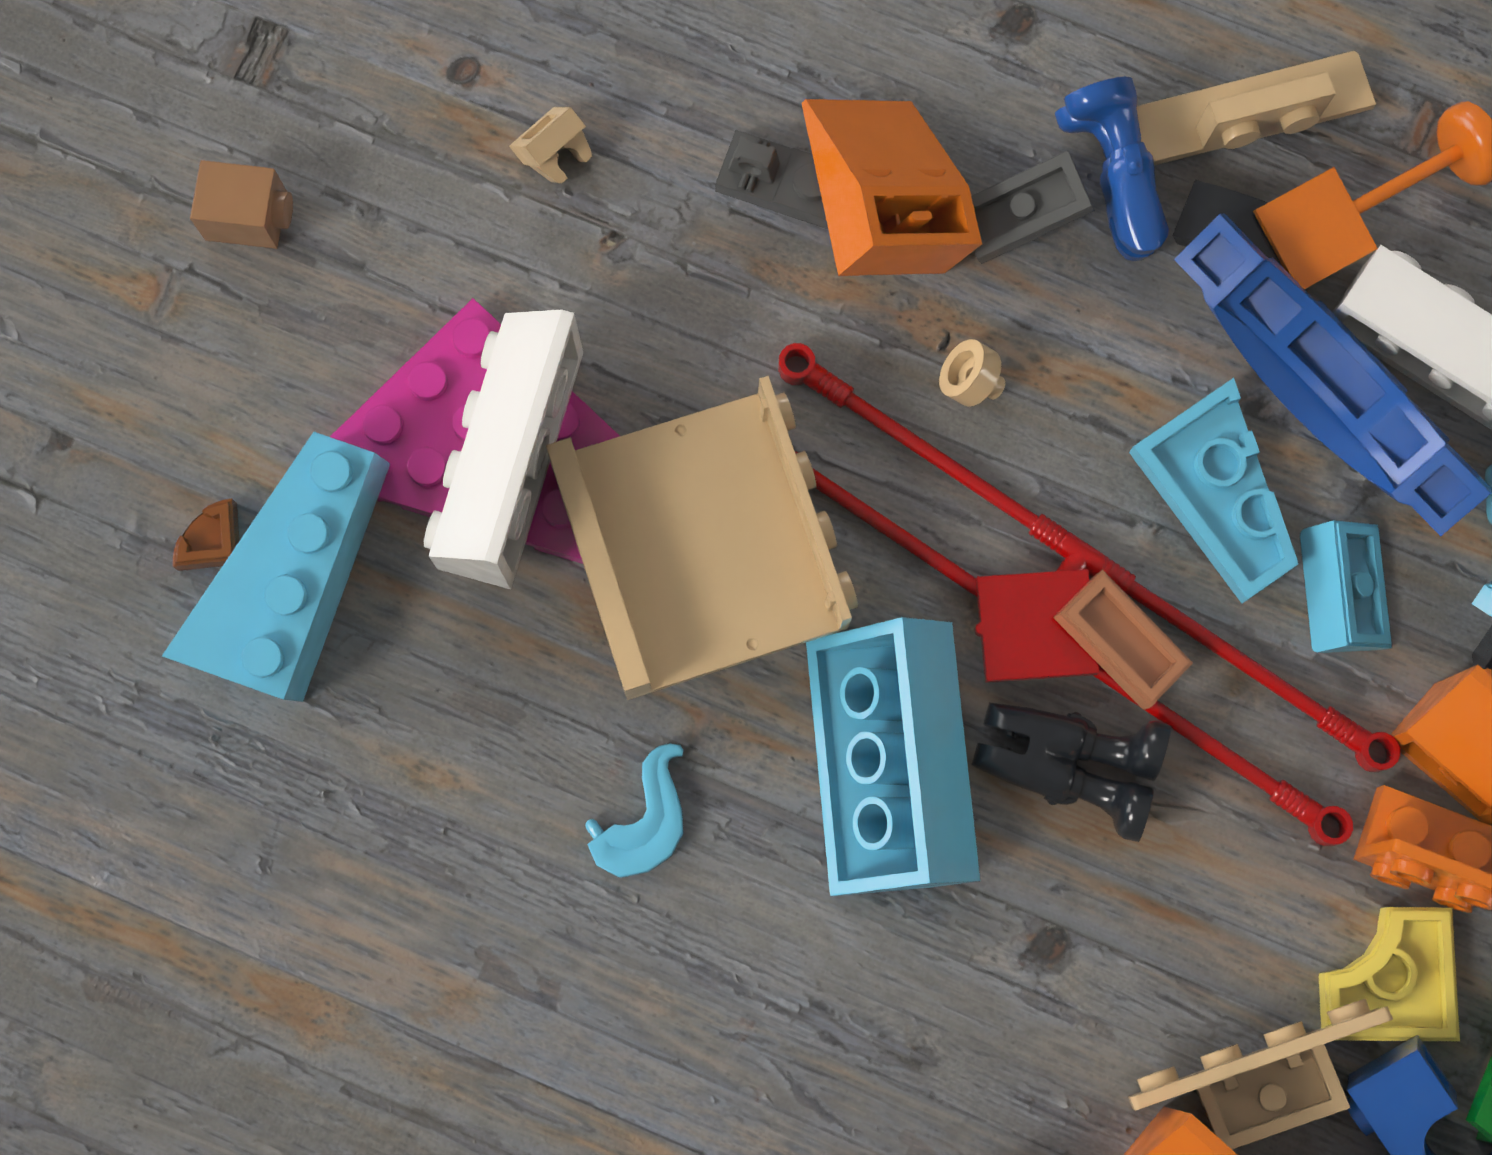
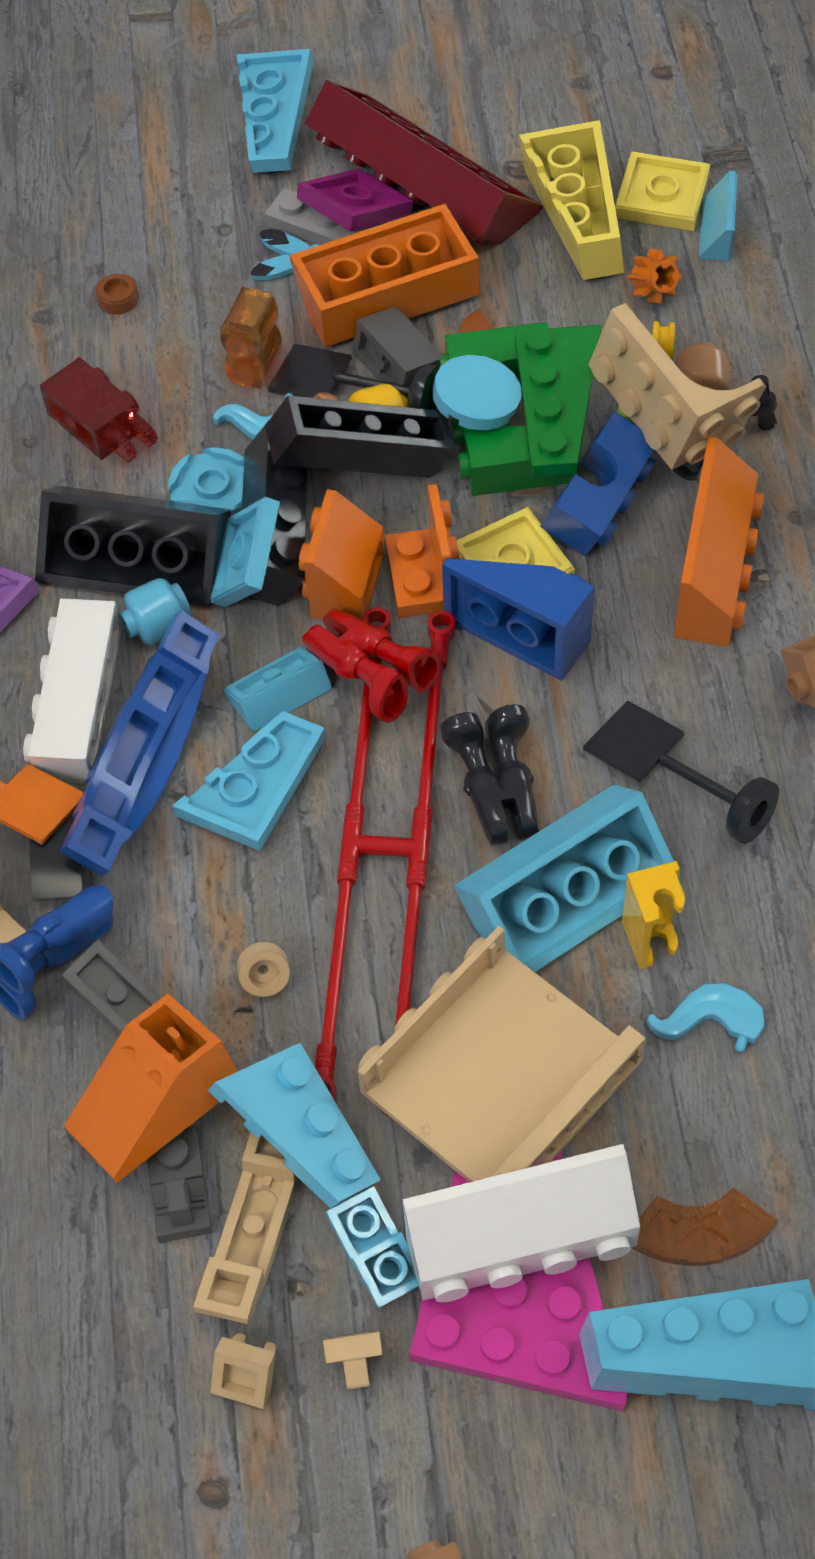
camera: 115 degrees left, 20 degrees down
(208, 537) = (722, 1446): dark orange tile -> none
(419, 653) = (704, 1232): none -> clear orange tile
(504, 244) = (353, 1352): none -> tan tile
(614, 327) = (374, 1246): none -> medium azure slope
(688, 221) = (250, 1235): none -> tan slope
(764, 310) = (299, 1117): none -> medium azure wing
(789, 811) = (650, 907): none -> yellow hinge
(1020, 630) = (420, 839): red piece -> none
(1032, 956) = (639, 741): none -> black piece
(1123, 640) = (400, 781): nougat tile -> none
(1270, 1087) = (625, 581): tan bracket -> none
(1277, 927) = (522, 610): none -> blue slope
(1339, 701) = (350, 646): none -> red piece

